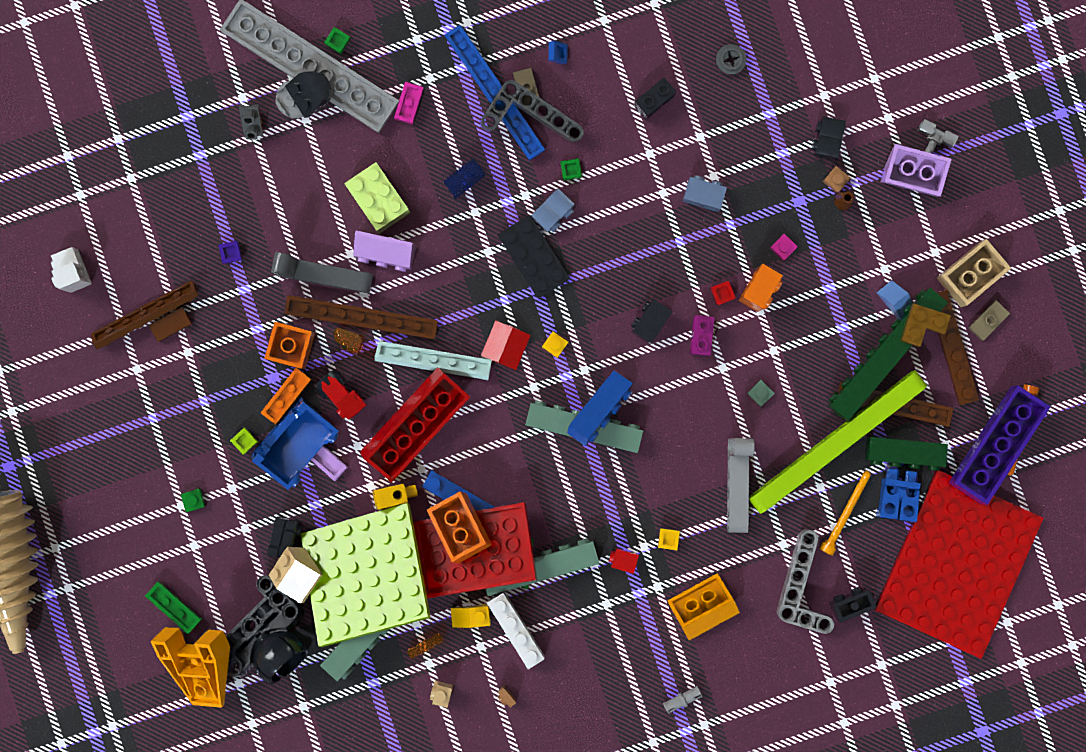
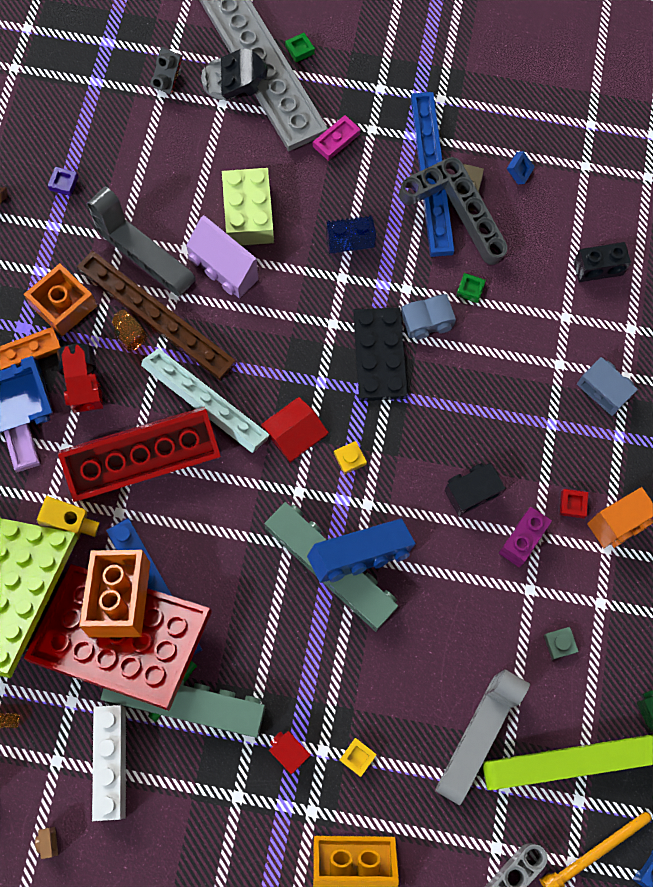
camera: 20 degrees right, 15 degrees down
(471, 616) = (67, 715): yellow slope -> none

